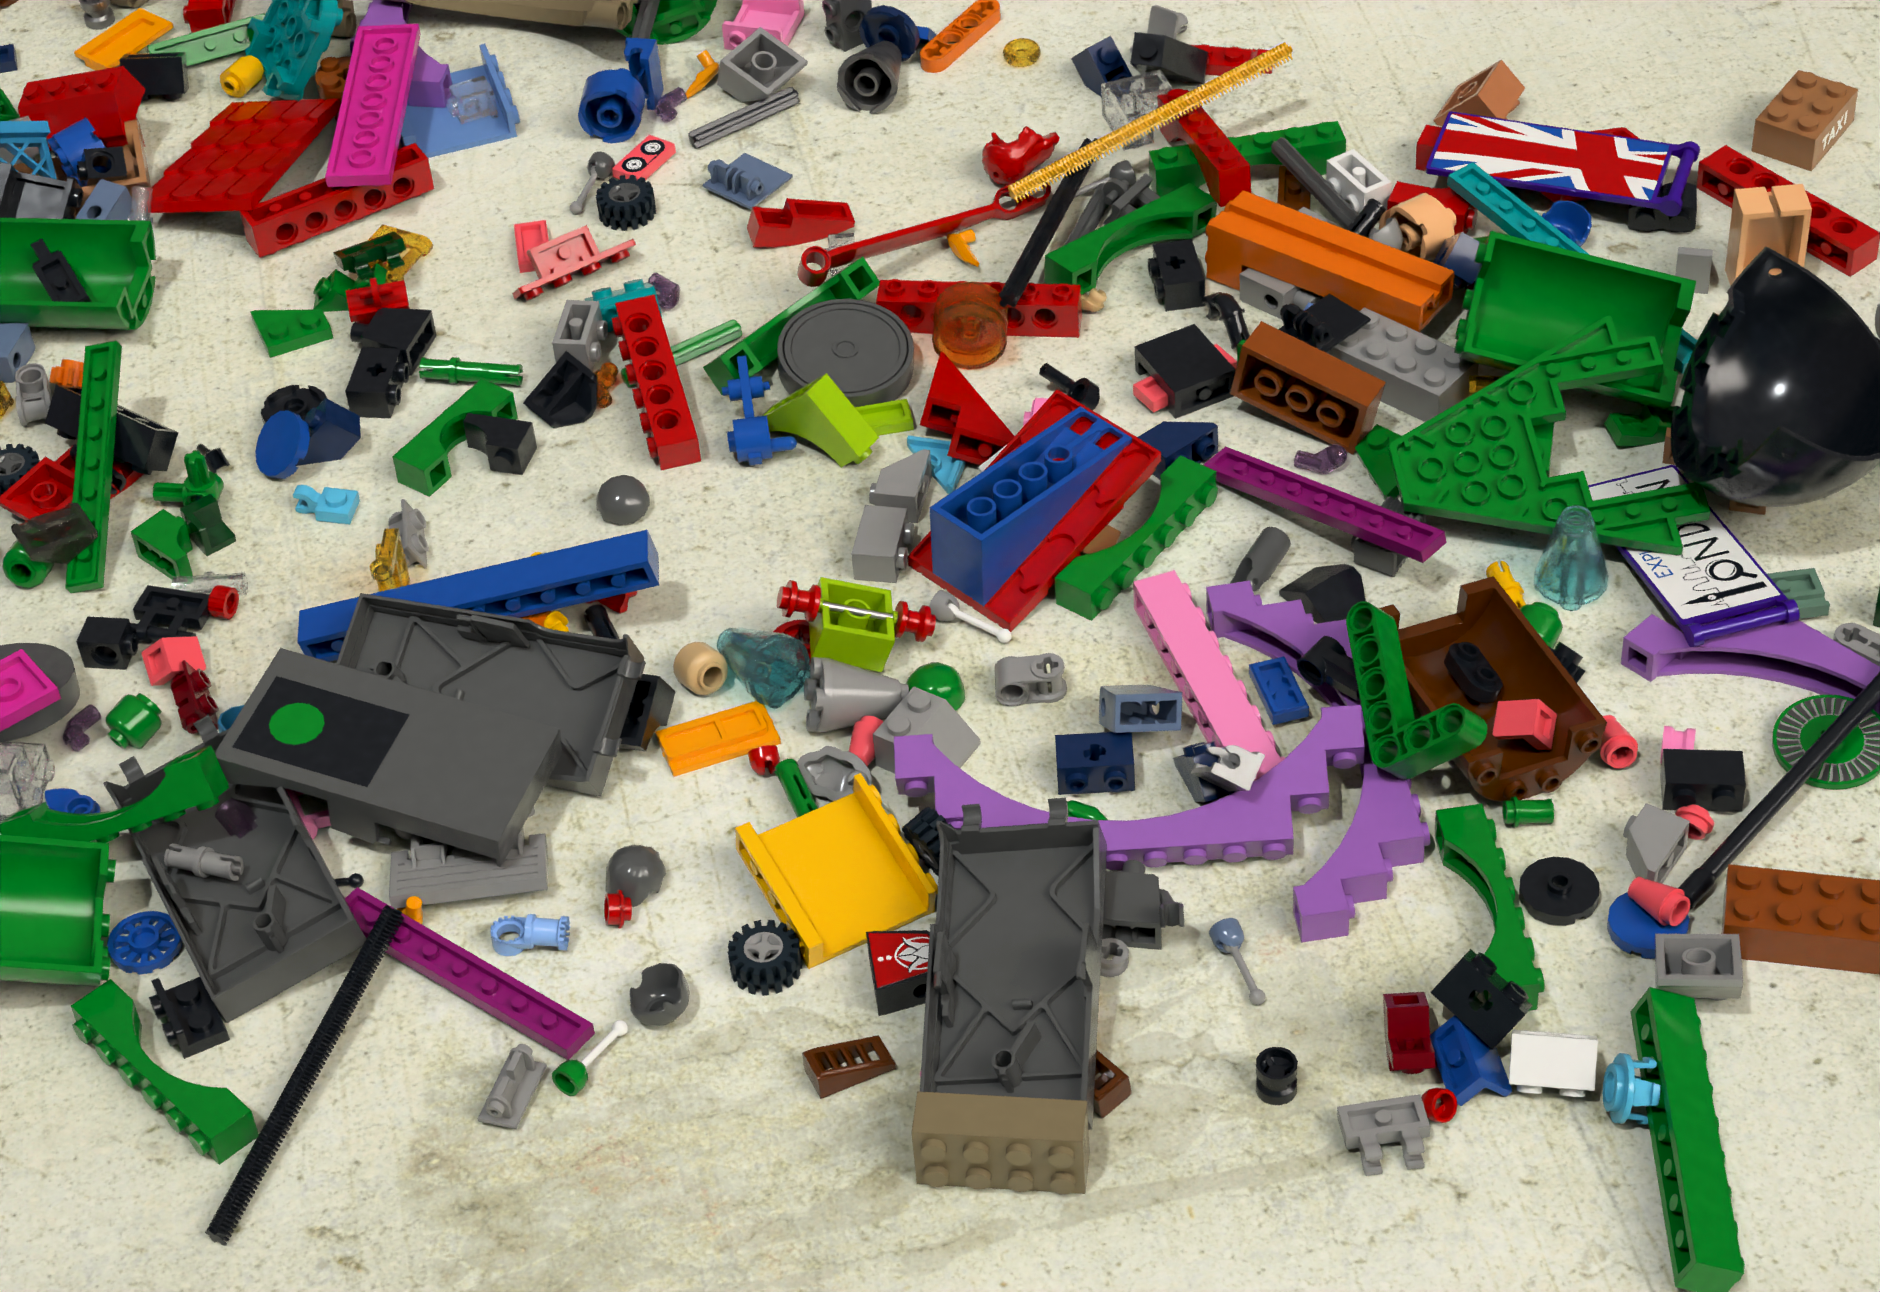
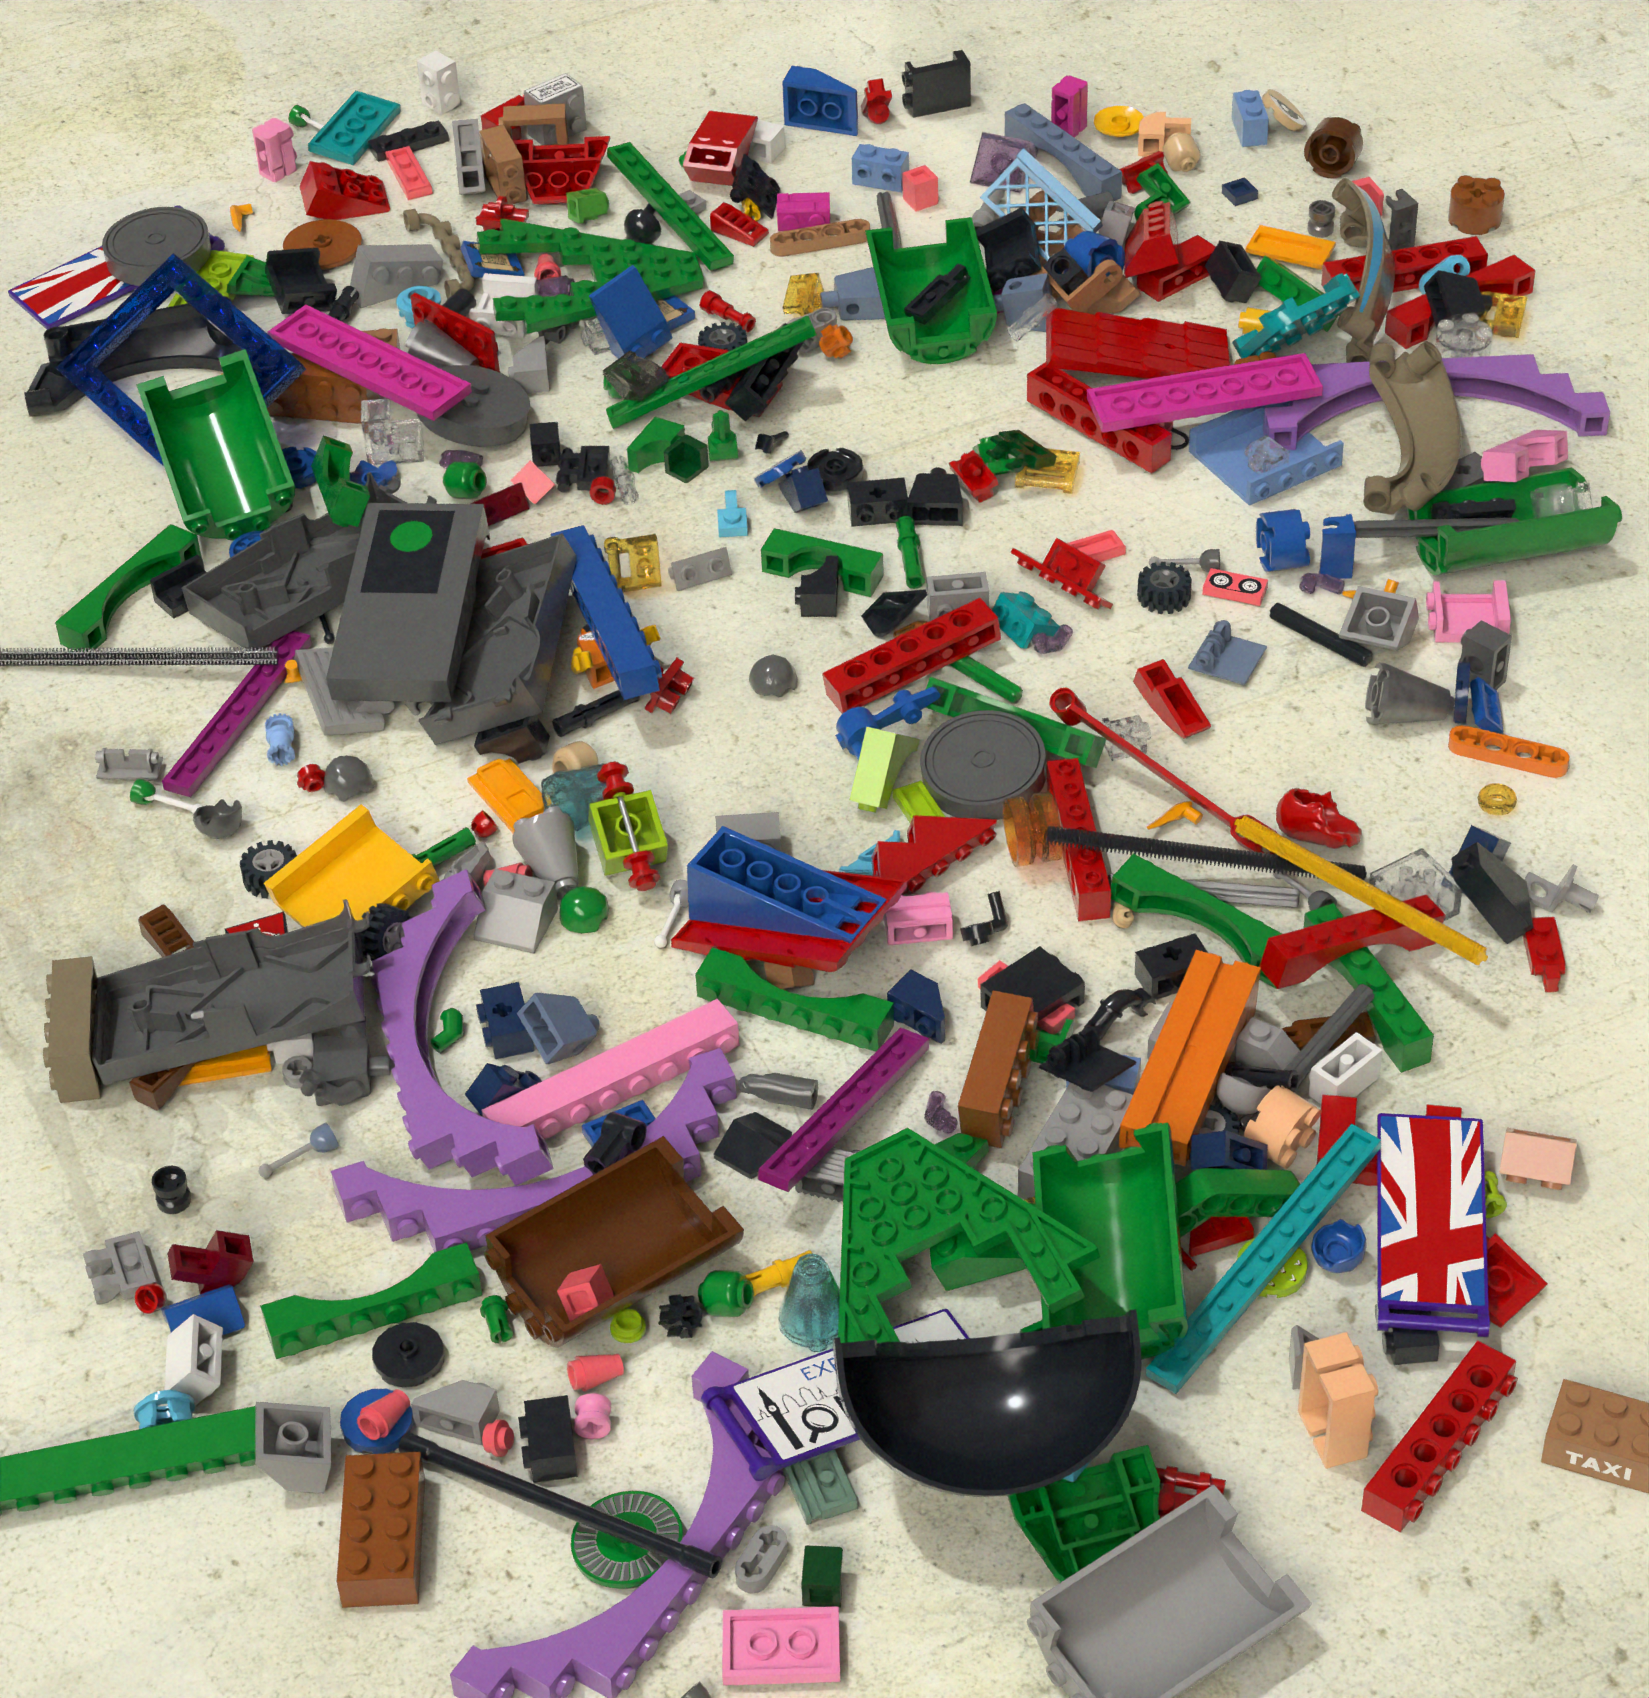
camera: 75 degrees right, 0 degrees up
(204, 862) = (315, 548): light grey pin -> none
(290, 329) = (939, 441): green wing -> none
(904, 484) = (825, 839): light grey slope -> none
(1026, 679) = (600, 964): light grey piece -> none
(1125, 199) = (1275, 908): dark grey hips -> none
(1234, 769) = (462, 1081): hinge -> none
(1394, 736) = (512, 1190): green beam -> none
(1473, 672) = (655, 1250): black plate -> none
(1494, 1016) = (243, 1296): black brick -> none

